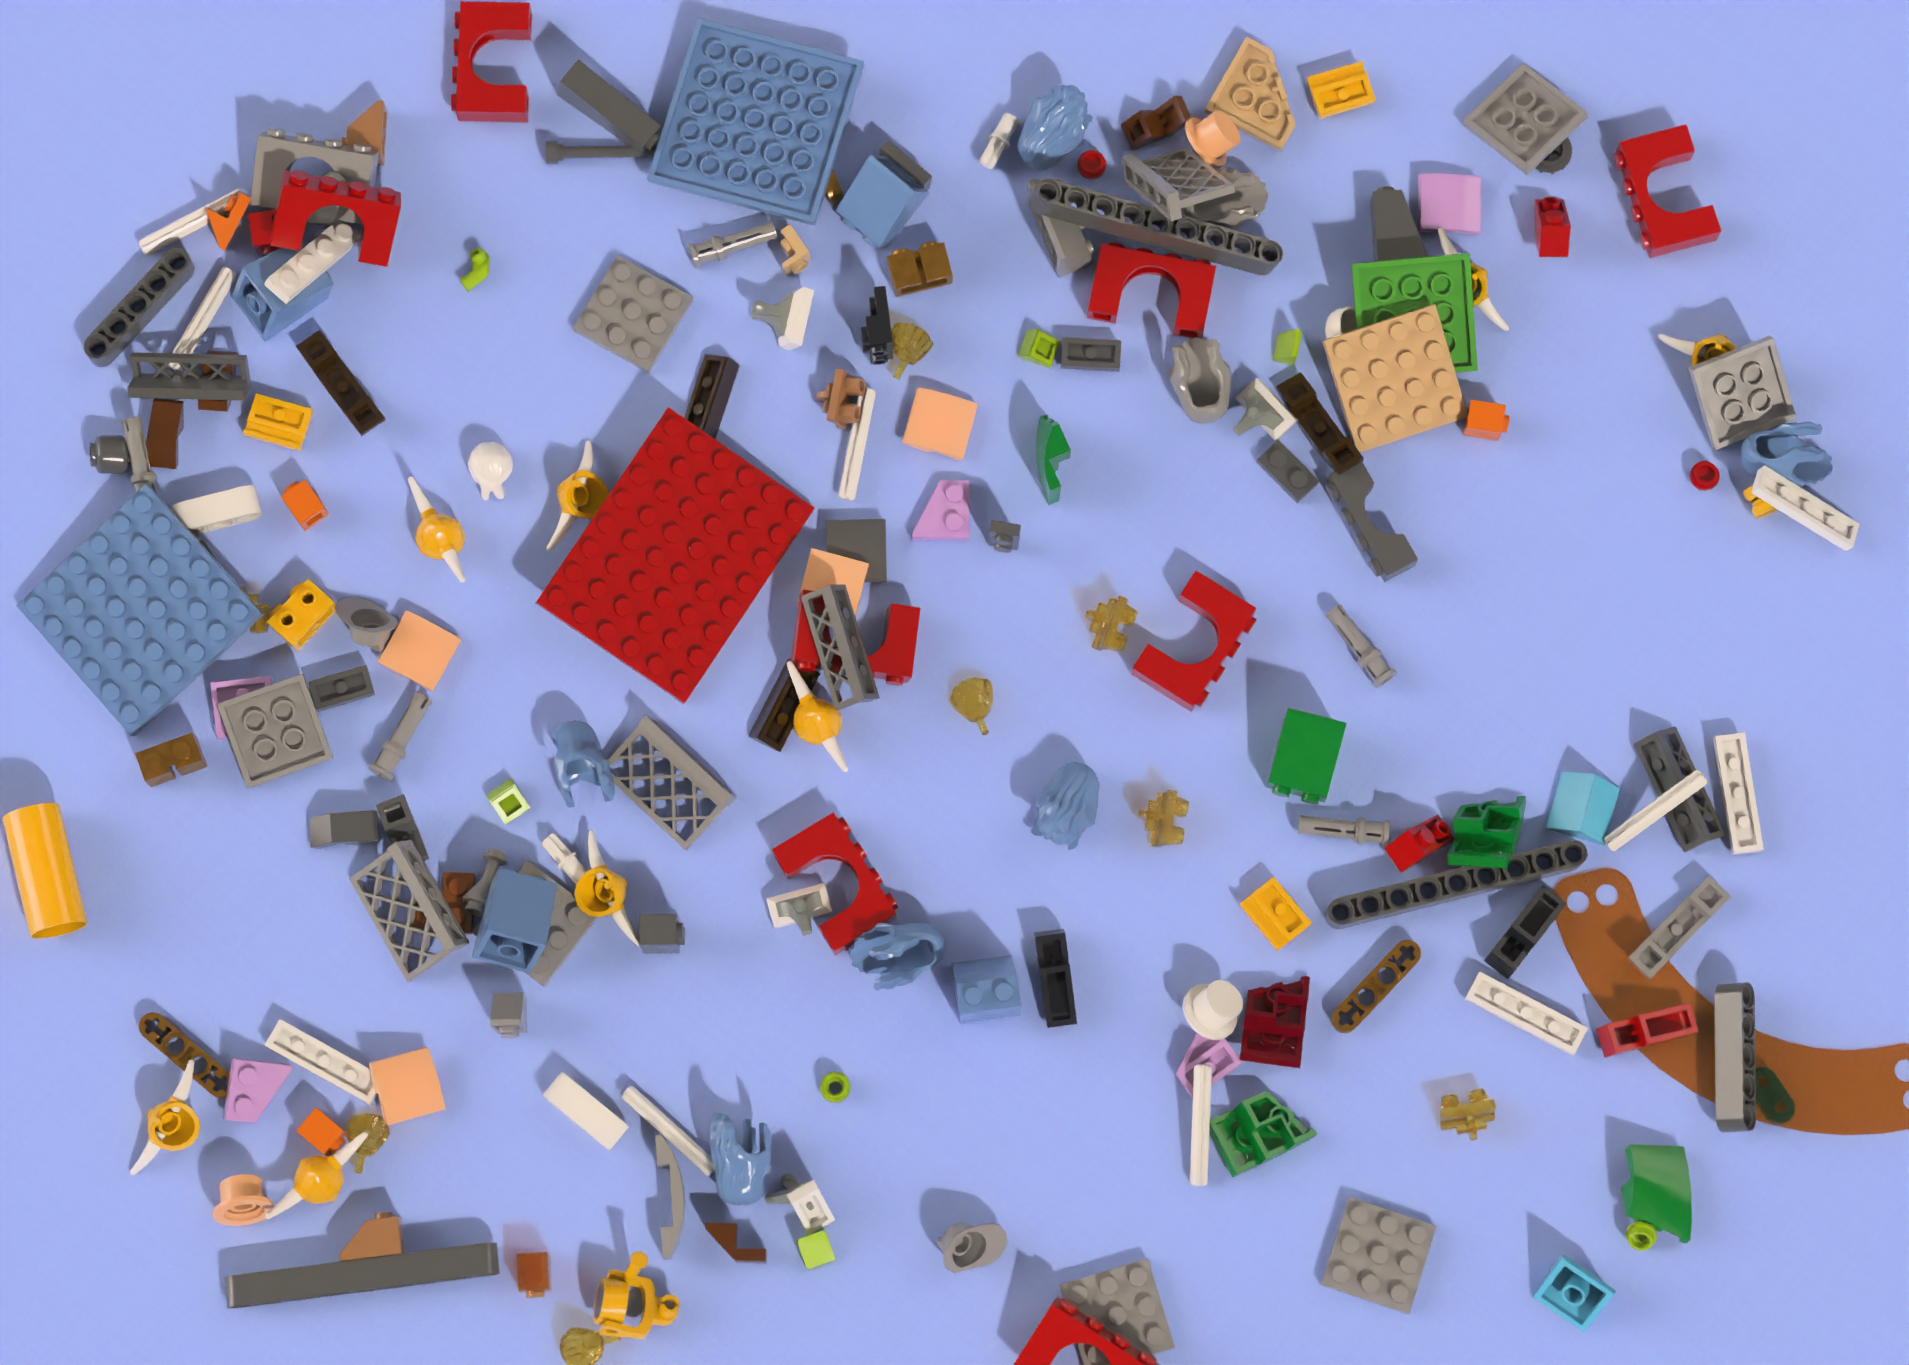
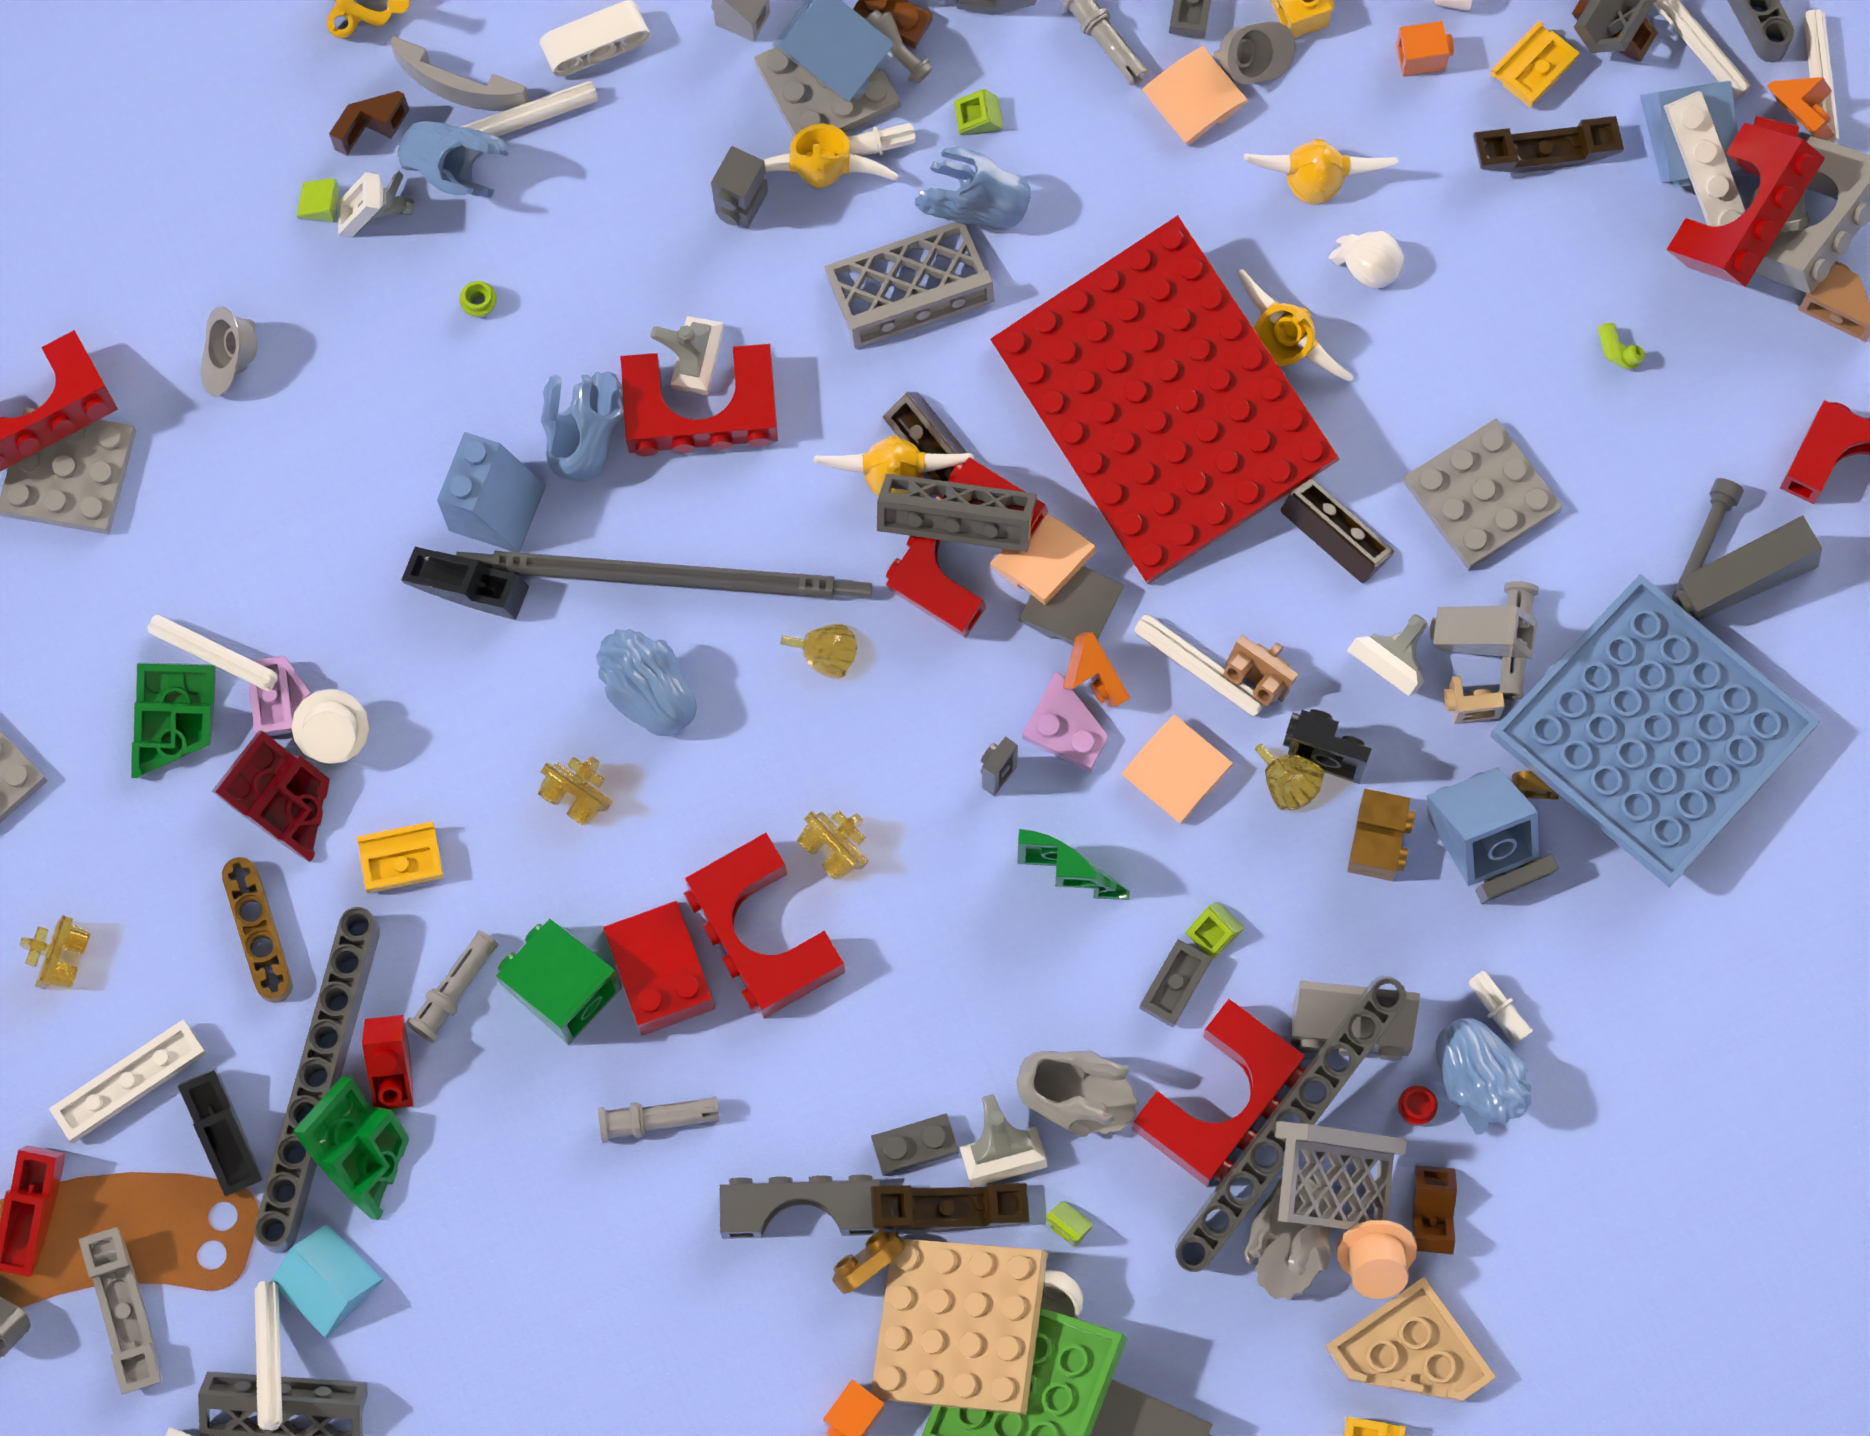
camera: 120 degrees right, 5 degrees down
(744, 260) = (1484, 631): none -> light grey slope
(902, 509) = (1091, 662): none -> orange slope
(977, 842) = (671, 575): none -> dark grey axle
(1258, 697) = (659, 968): none -> red slope
(1384, 458) = (878, 1253): none -> pearl gold plate

